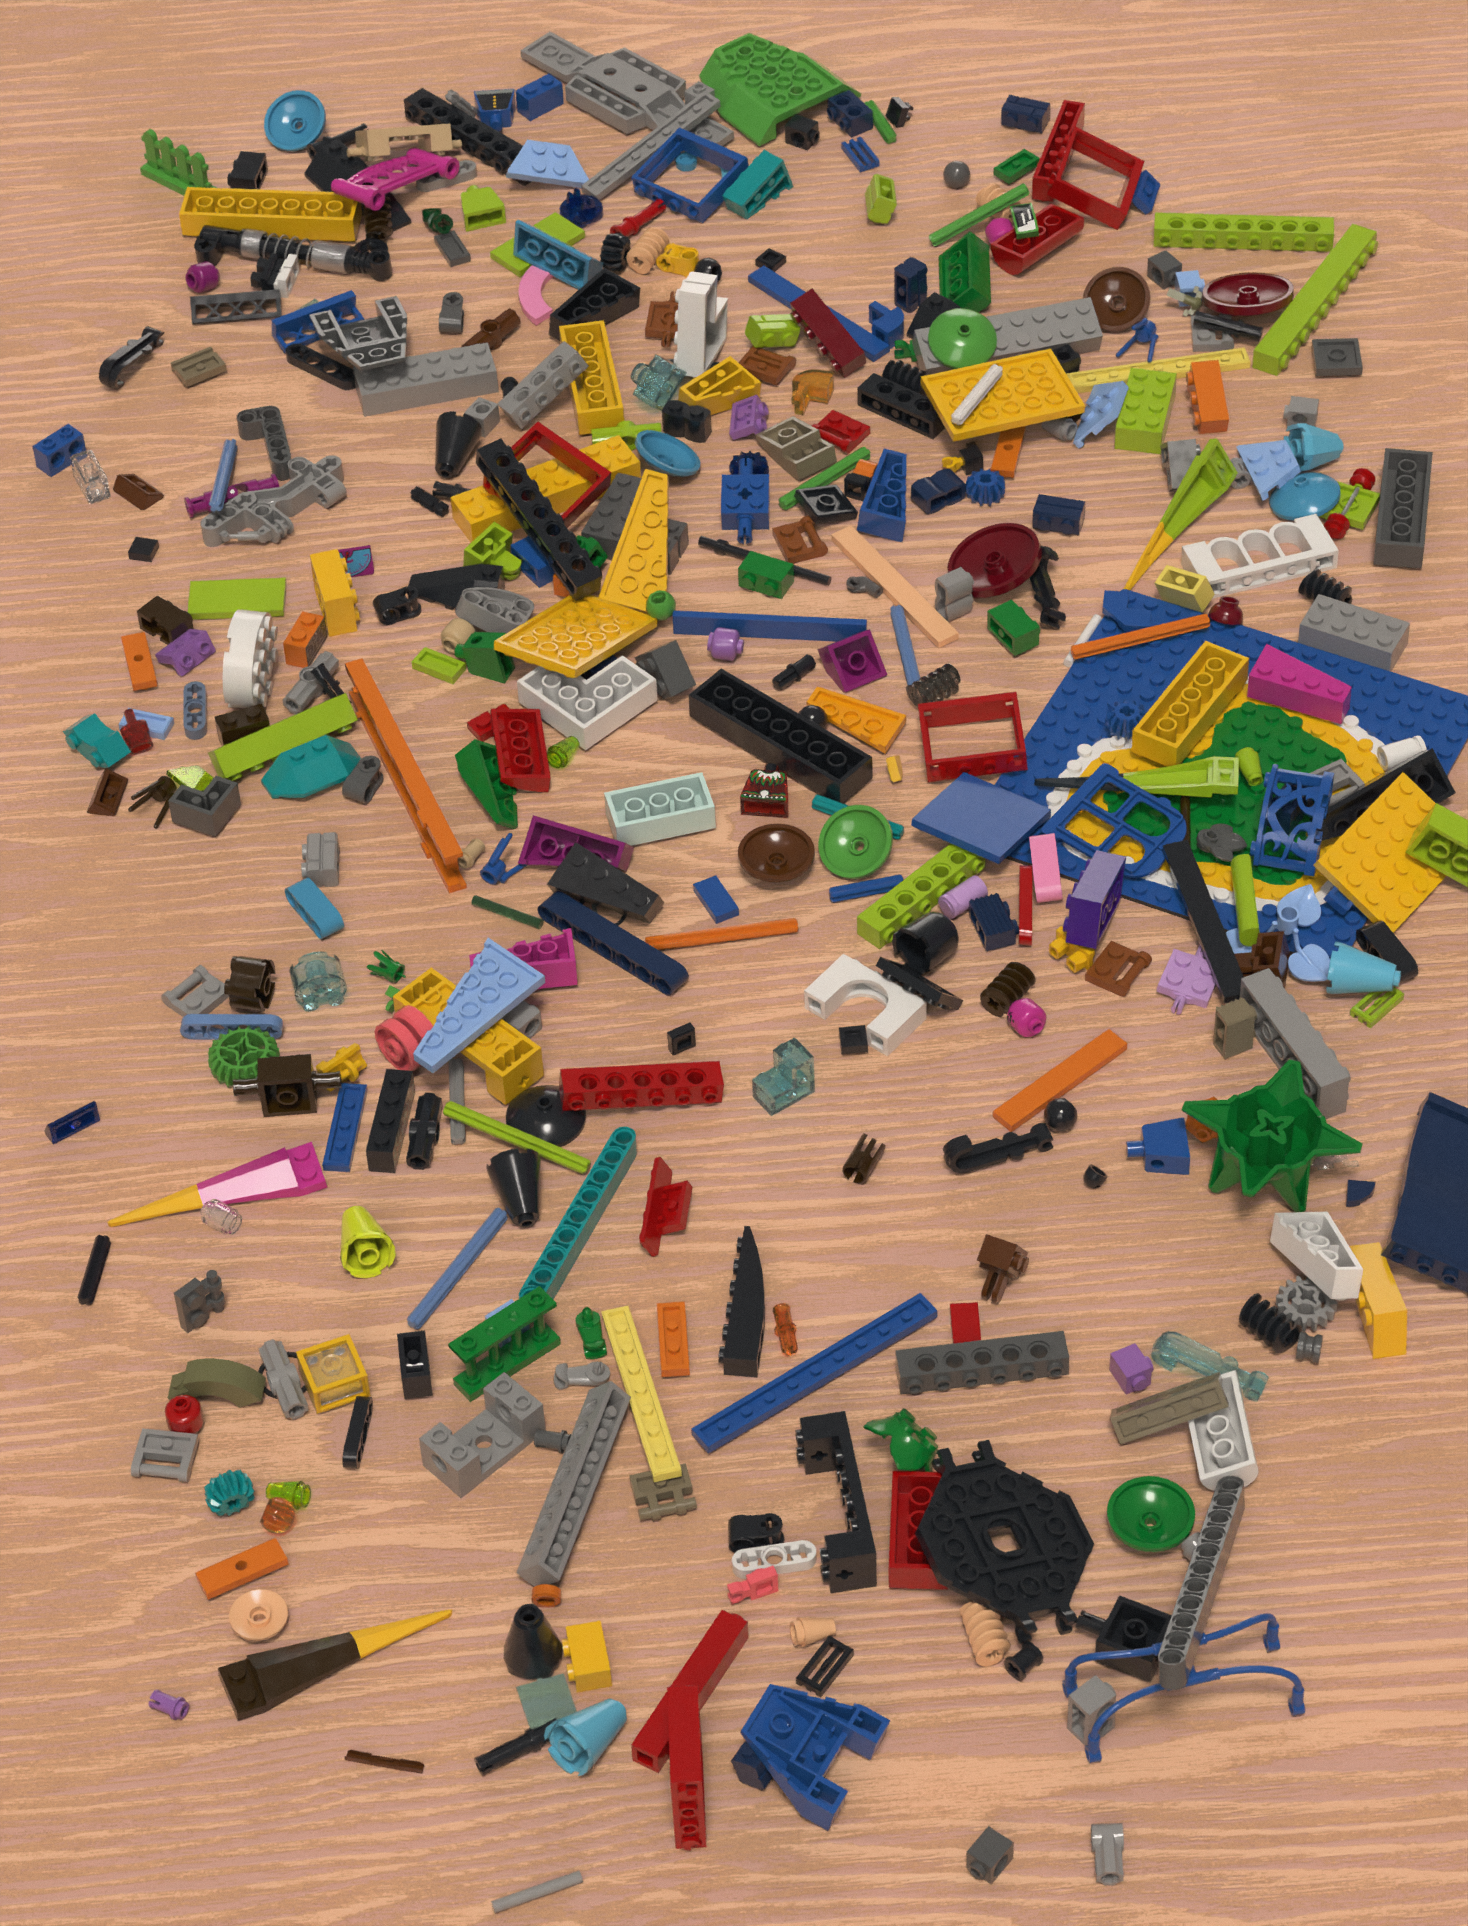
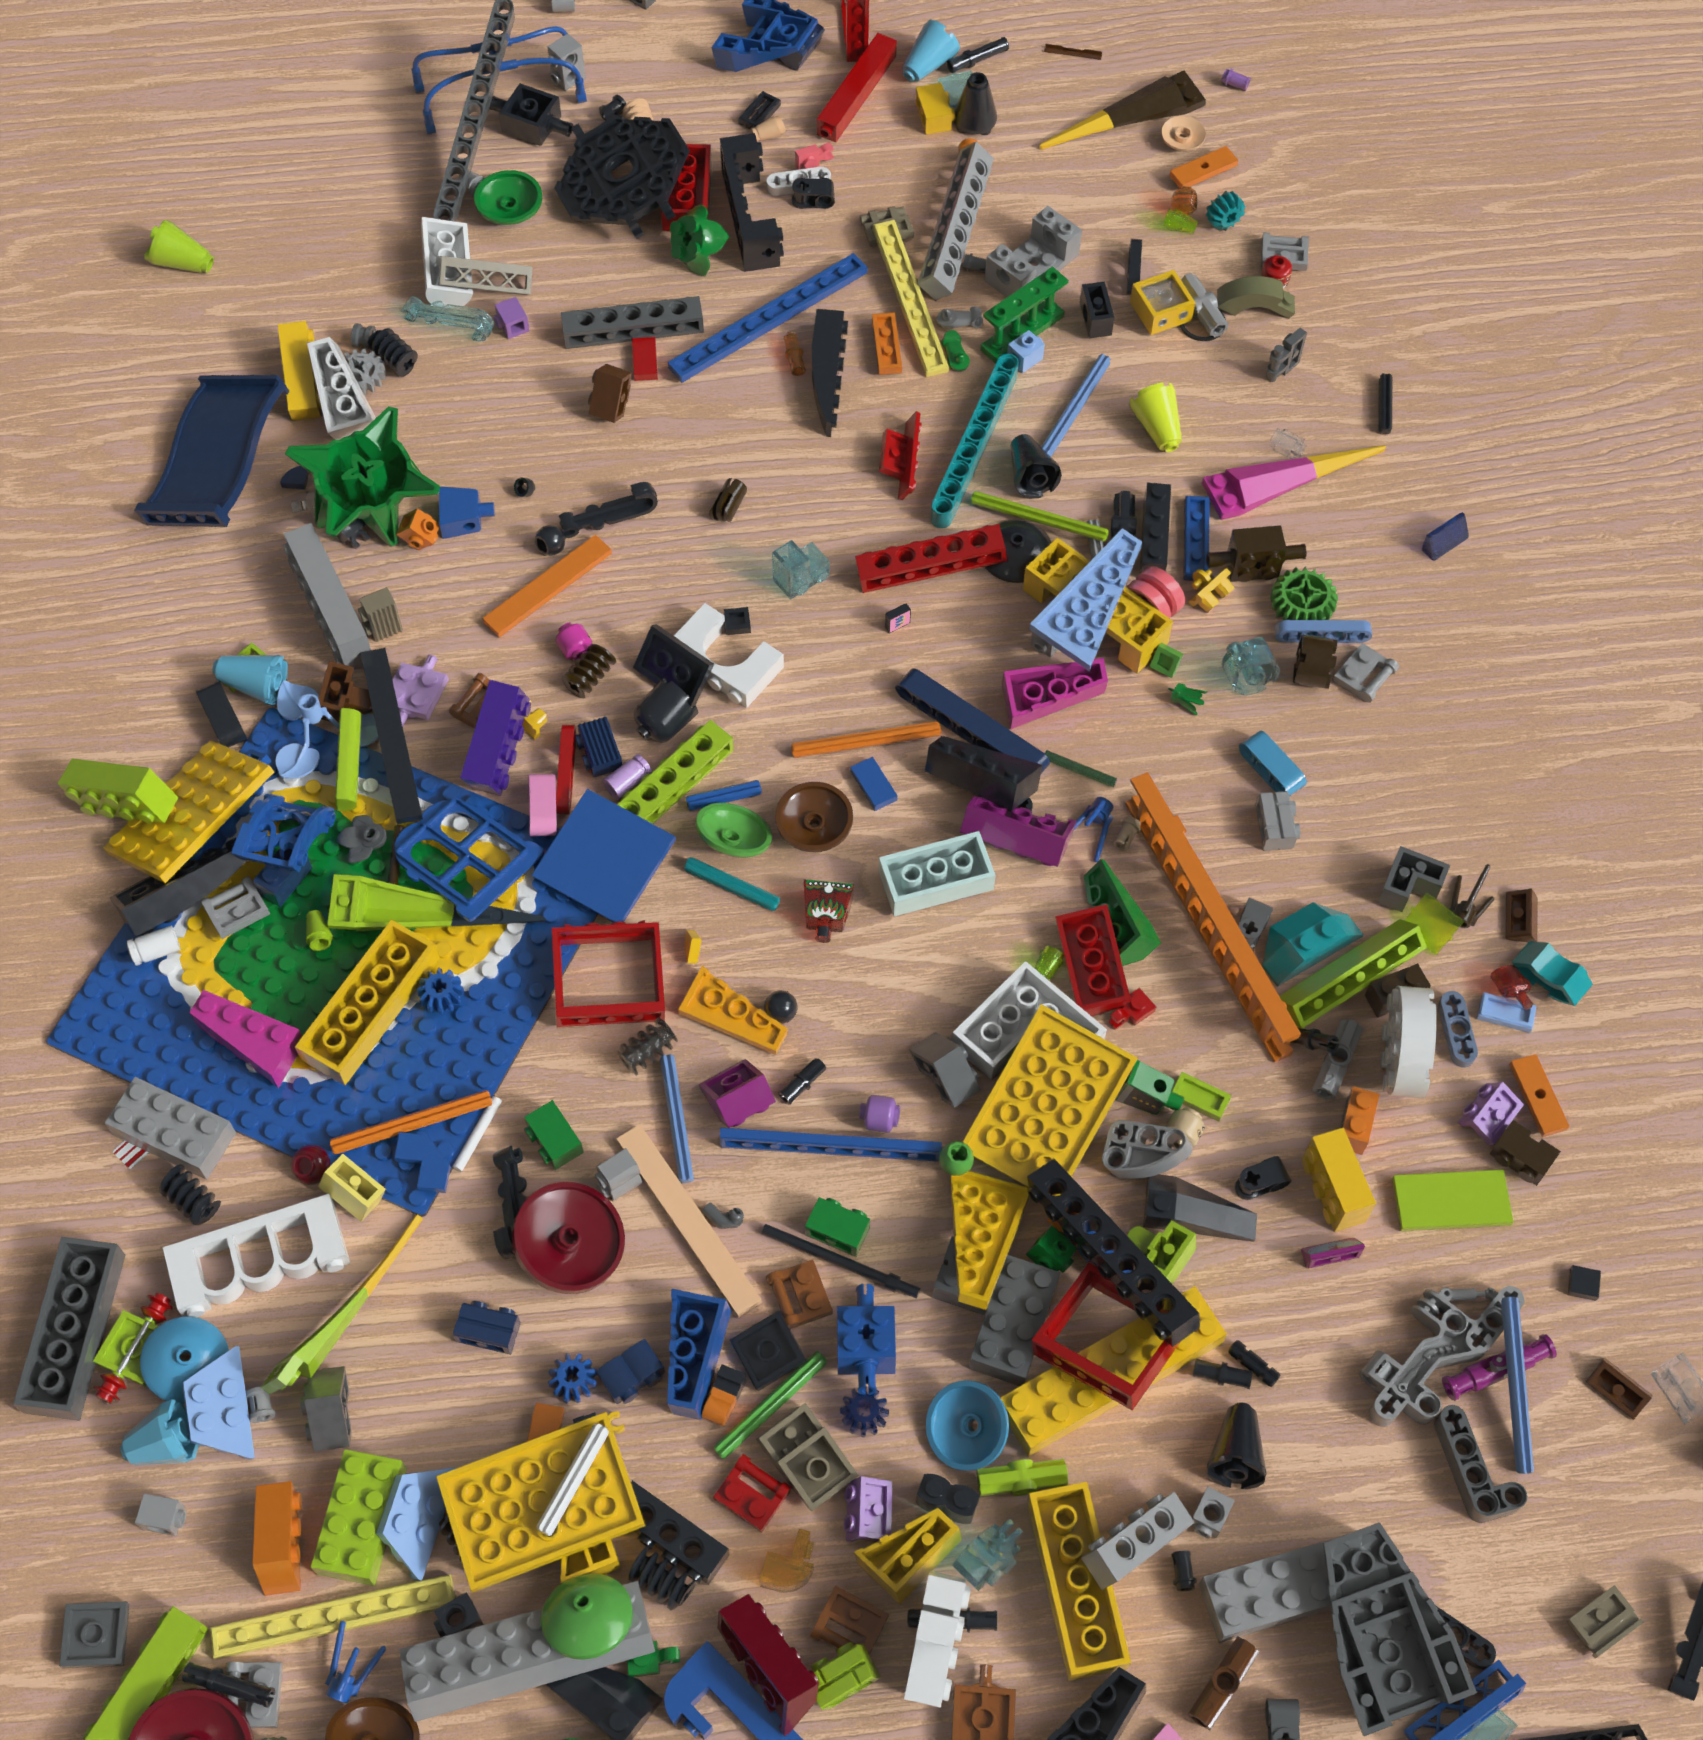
camera: 175 degrees right, 15 degrees up
(780, 736) = (815, 973): black brick -> none

